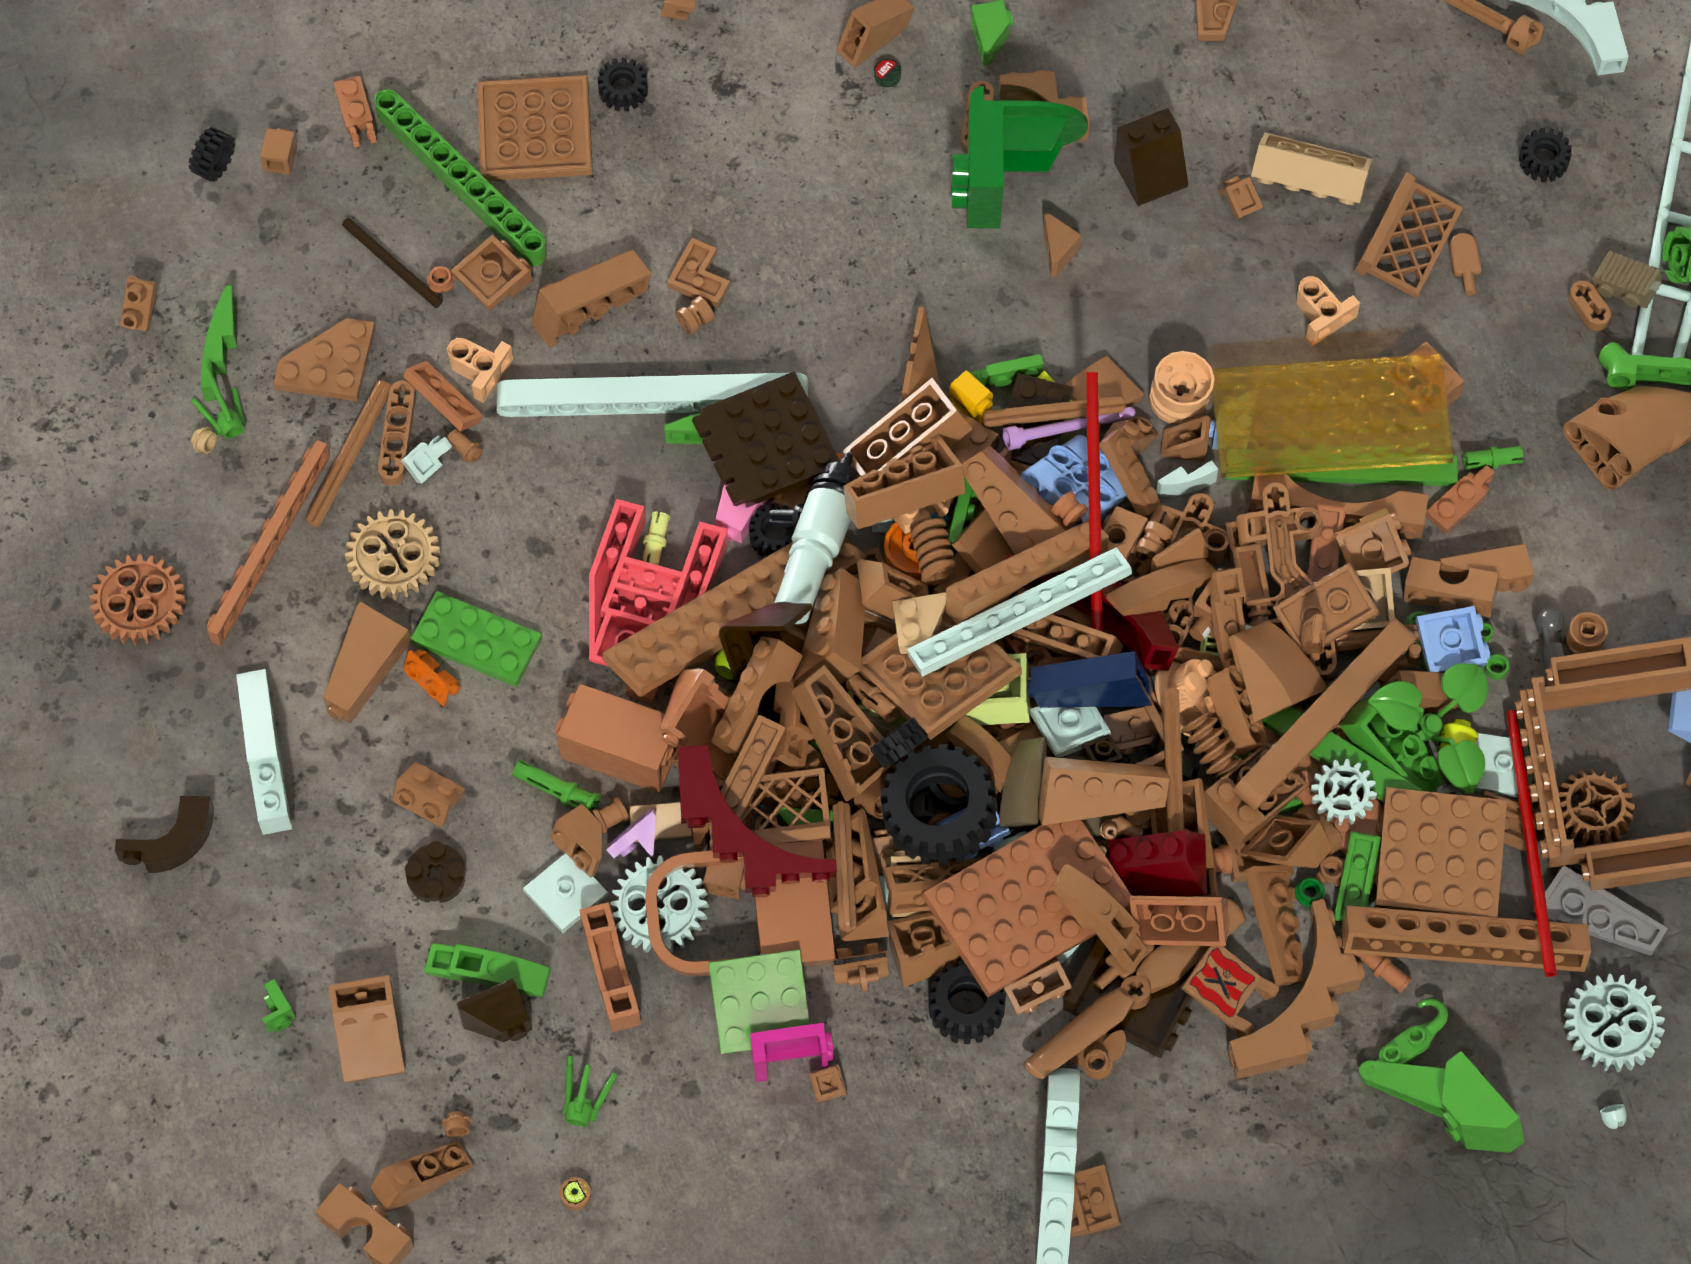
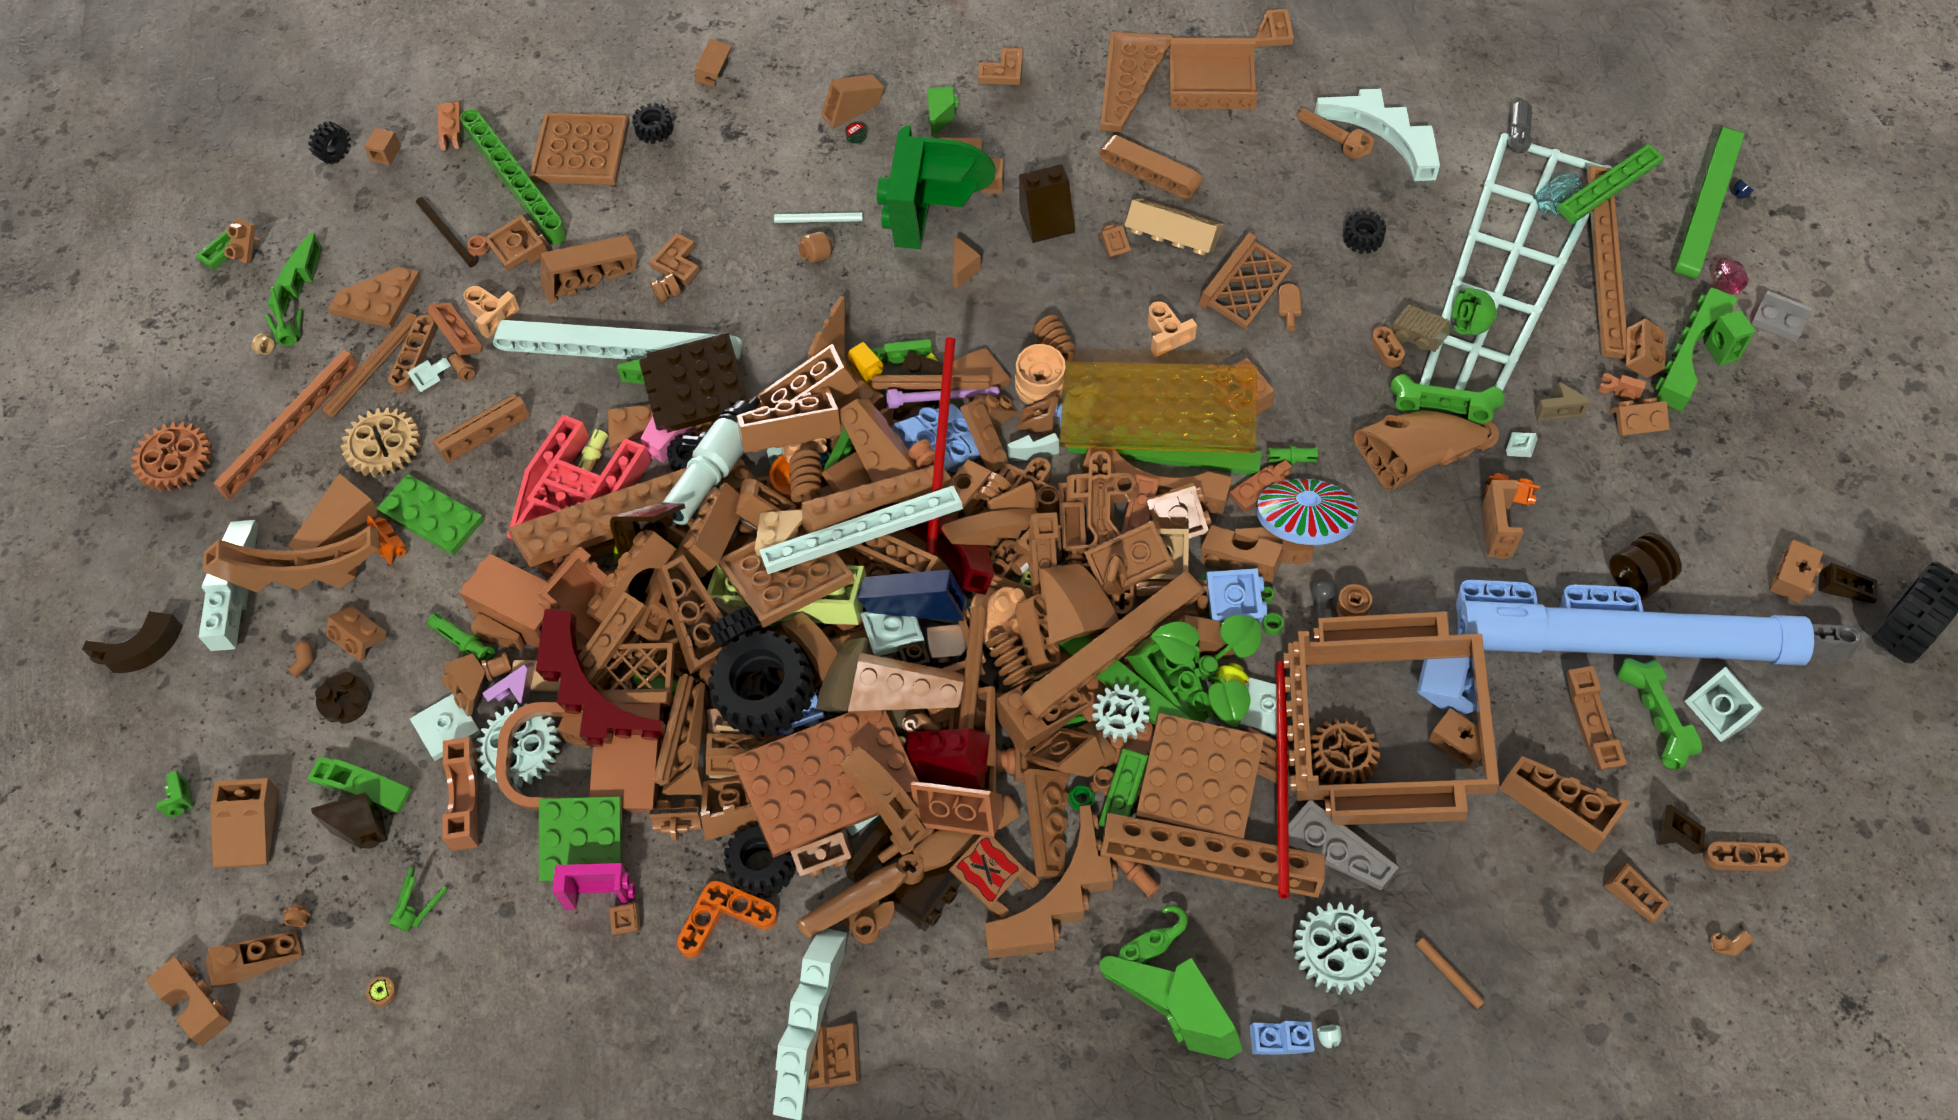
camera: 10 degrees right, 5 degrees down
(102, 337) = (217, 257): none -> bright green tile
(343, 726) = (257, 568): none -> medium nougat arch
(376, 831) = (304, 658): none -> medium nougat arm
(510, 527) = (481, 428): none -> medium nougat fence
(599, 776) = (495, 633): none -> medium nougat slope
(690, 498) = (627, 423): none -> medium nougat wing
(865, 197) = (818, 217): none -> light aqua bar
(871, 241) = (815, 247): none -> medium nougat head
(872, 698) = (725, 589): medium nougat pin -> none
(926, 1059) = (715, 908): none -> orange beam
(1186, 336) = (1051, 333): none -> medium nougat piece
(1270, 89) = (1151, 167): none -> medium nougat beam
(1520, 527) = (1307, 511): none -> dish
(1563, 1125) = (1282, 1038): none -> light blue slope

